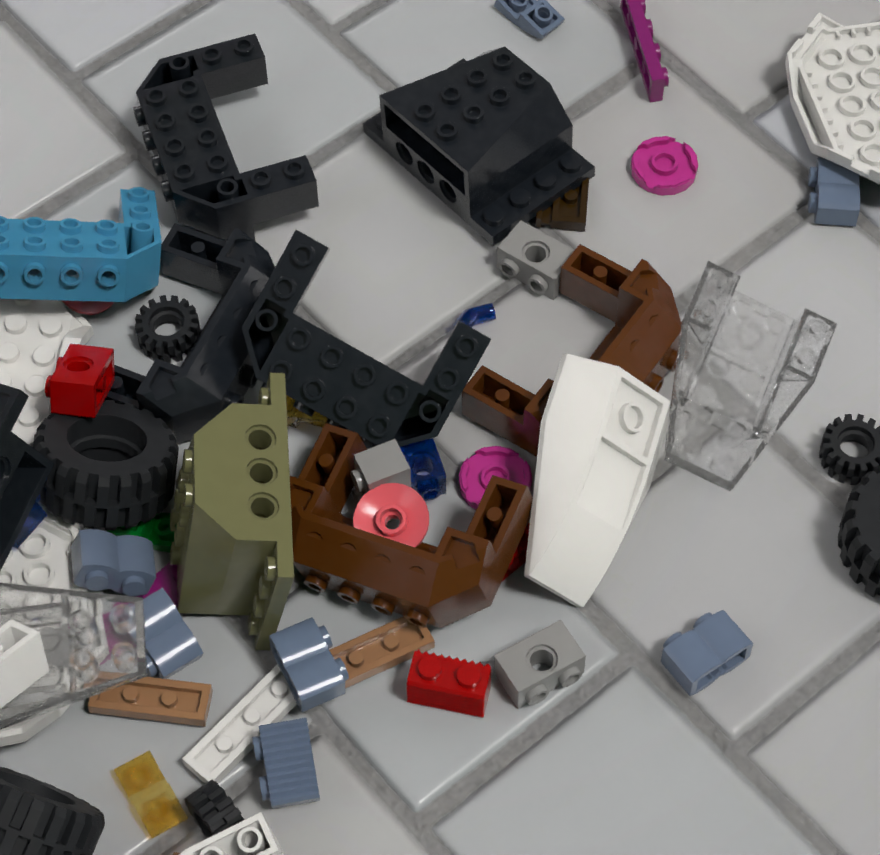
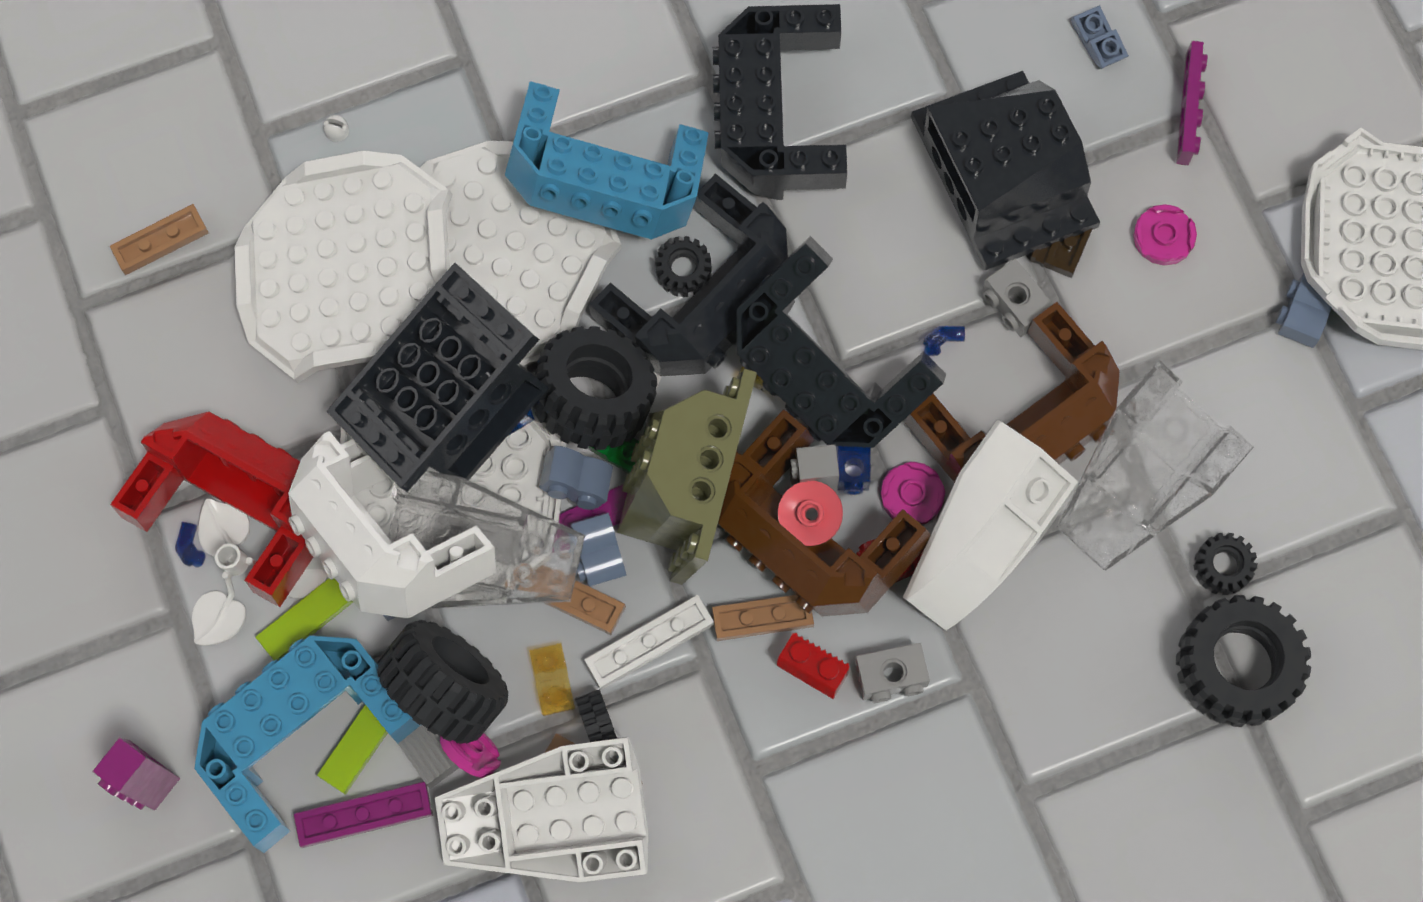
camera: 20 degrees right, 15 degrees up
(81, 380) = (593, 310): red brick -> none
(287, 762) = (664, 692): sand blue brick -> none
(308, 664) = (705, 615): sand blue brick -> none
(706, 651) = (1031, 705): sand blue brick -> none

